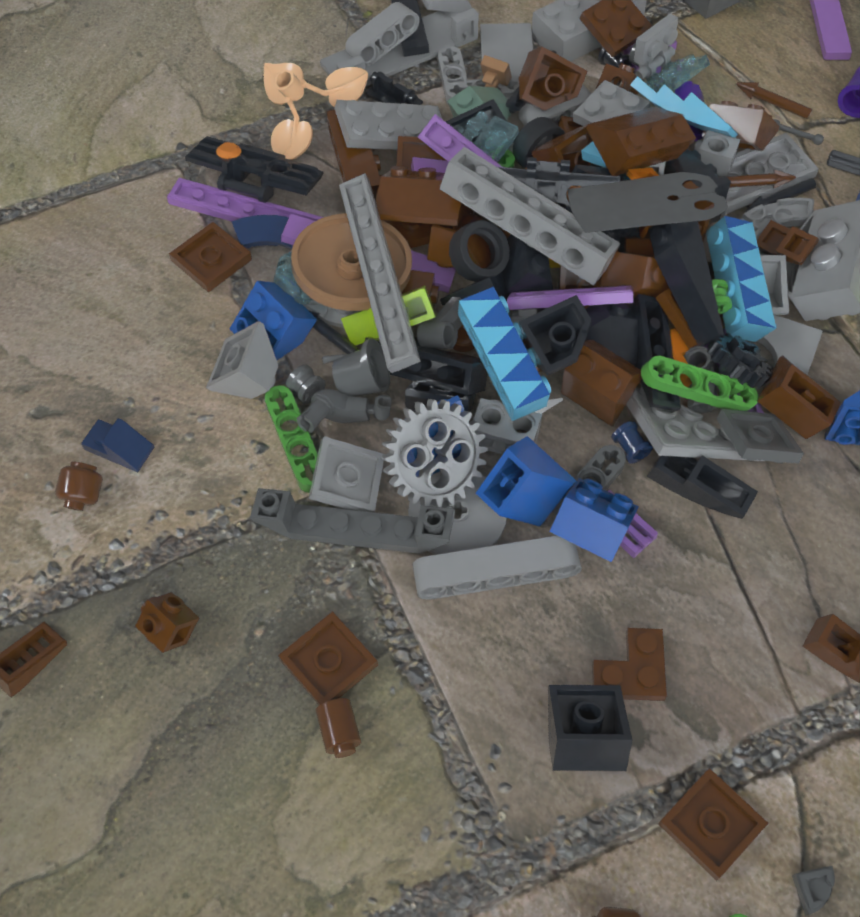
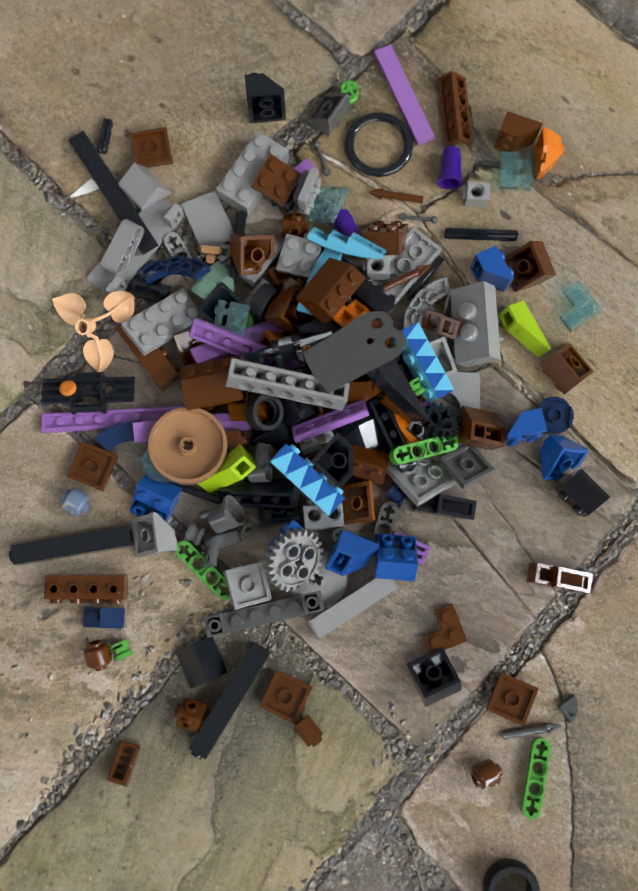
camera: 25 degrees left, 20 degrees up
(115, 394) = (86, 587): none -> reddish brown brick
(116, 493) = (122, 652): none -> bright green wheel
(128, 336) = (71, 546): none -> black brick
(162, 285) = (75, 501): none -> sand blue head
(224, 558) = (201, 662): none -> black slope
(235, 629) = (229, 701): none -> black brick
(379, 275) = (209, 451): light grey tile -> none
(439, 74) = (174, 265): none -> dark blue tile
(568, 429) = (358, 503): none -> dark orange slope
(688, 49) = (327, 172): none -> dark grey hinge
(762, 904) = (546, 728): none -> dark grey piece
(771, 70) = (379, 172): none -> black wedge

